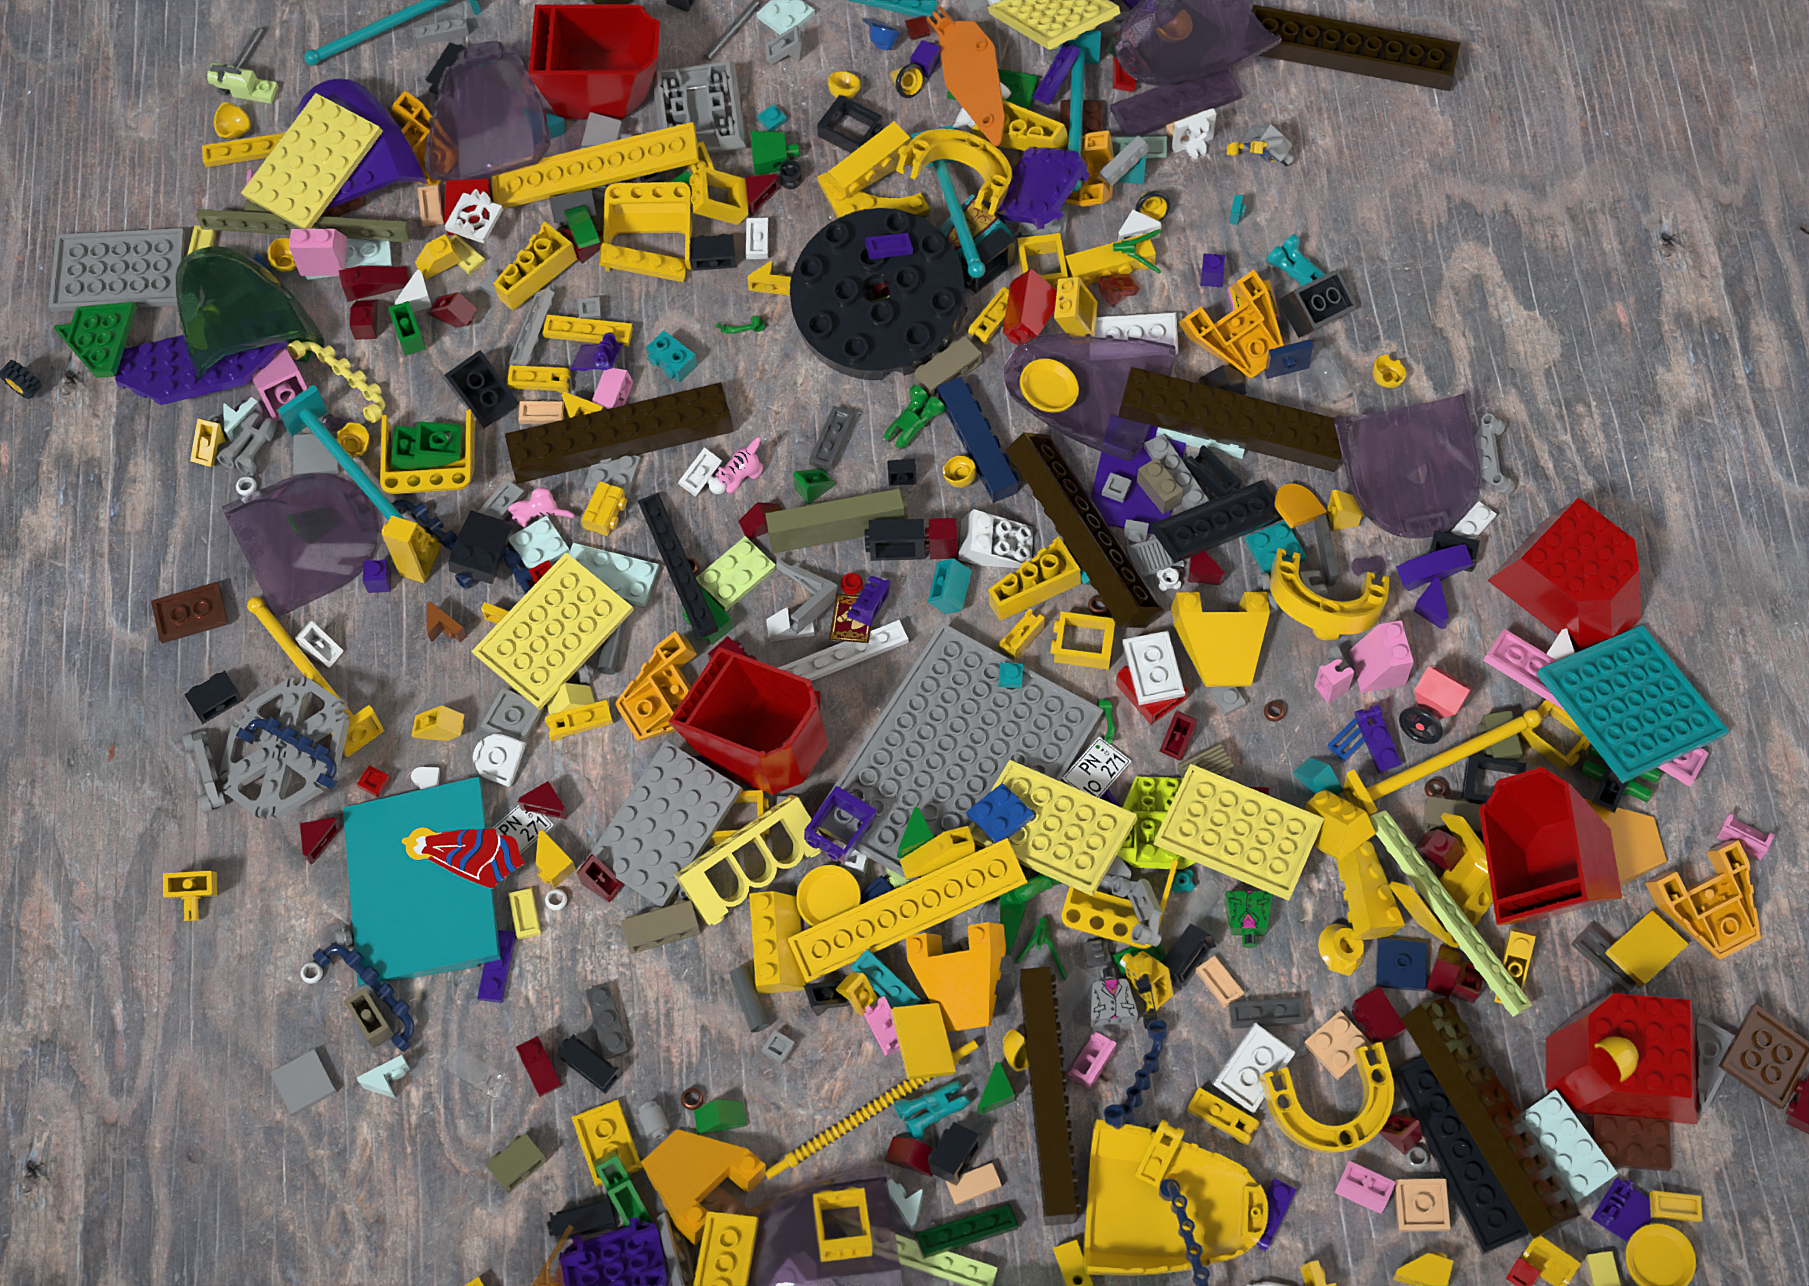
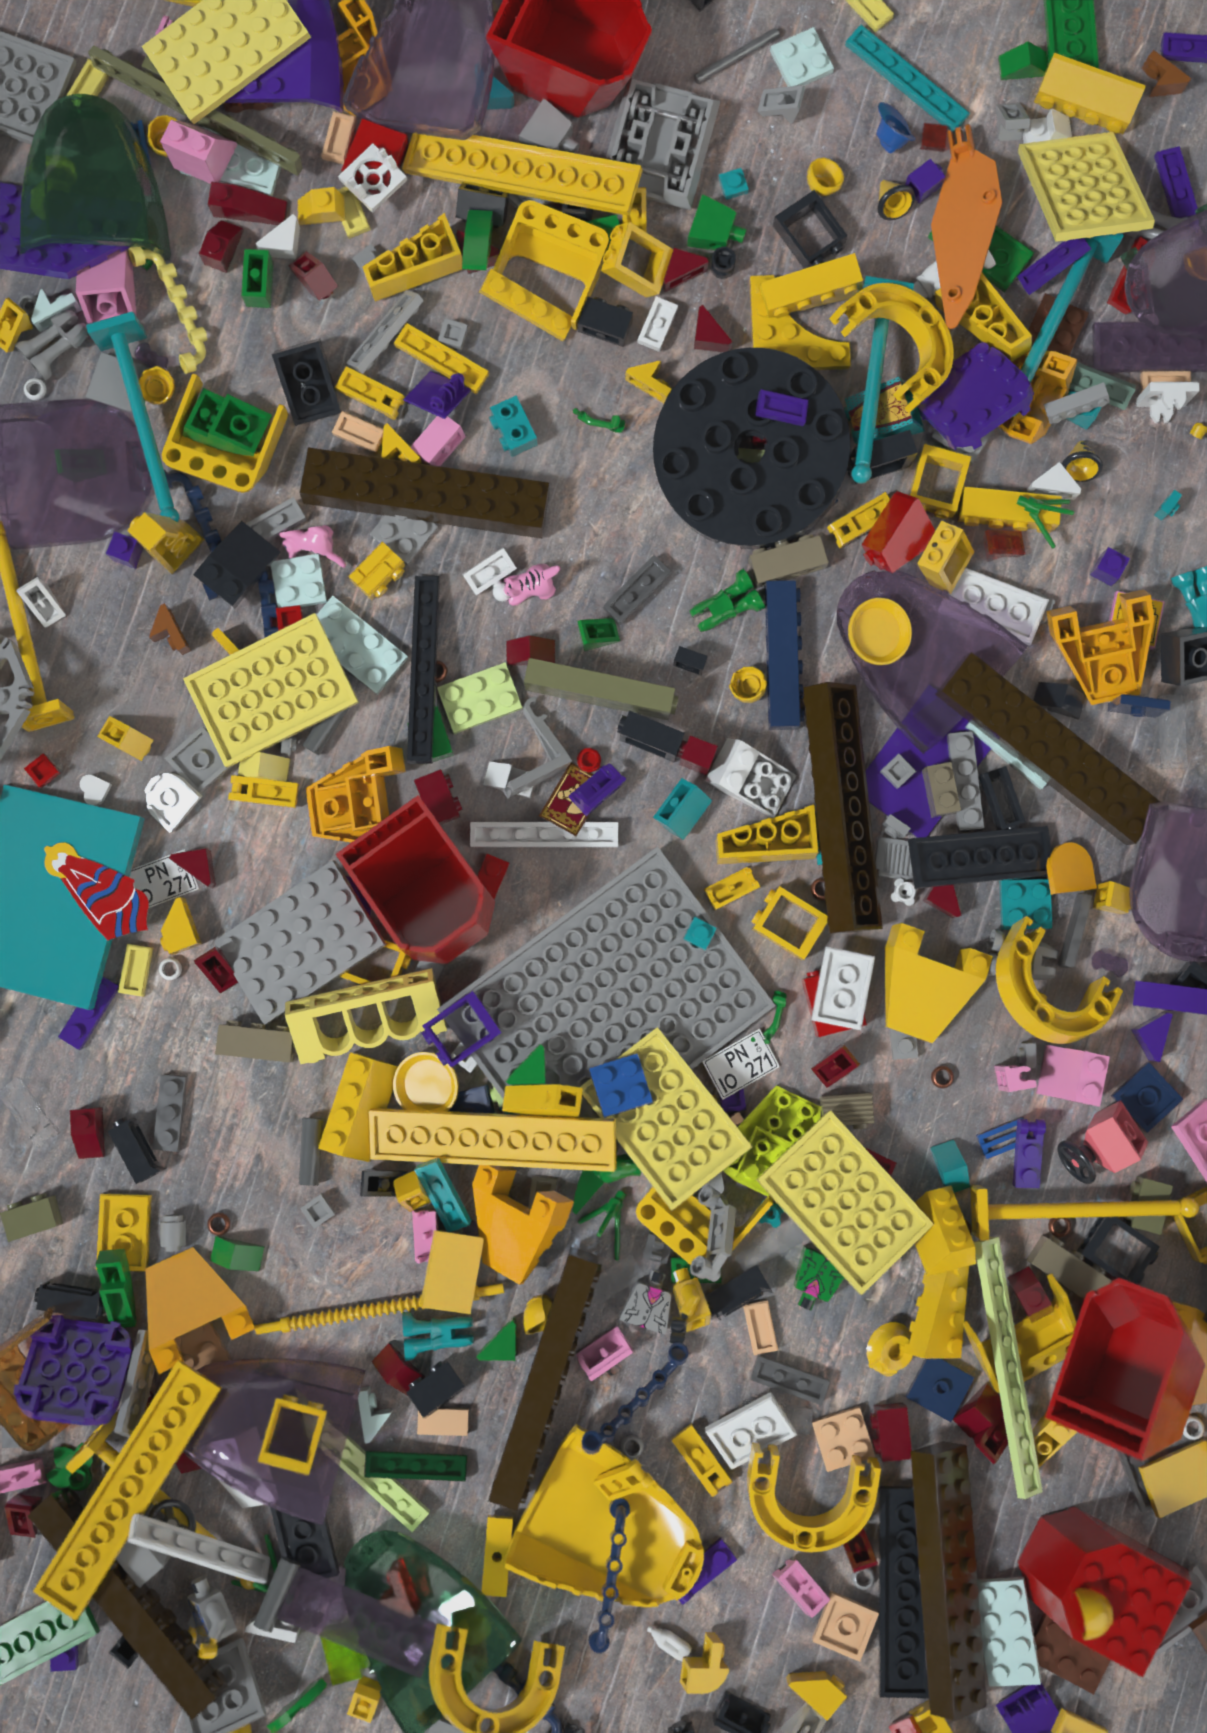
camera: 20 degrees right, 20 degrees up
(802, 227) = (709, 334): none -> dark red slope
(1454, 653) = (1147, 1097): none -> dark blue plate
(1634, 913) = (1199, 1433): none -> white piece

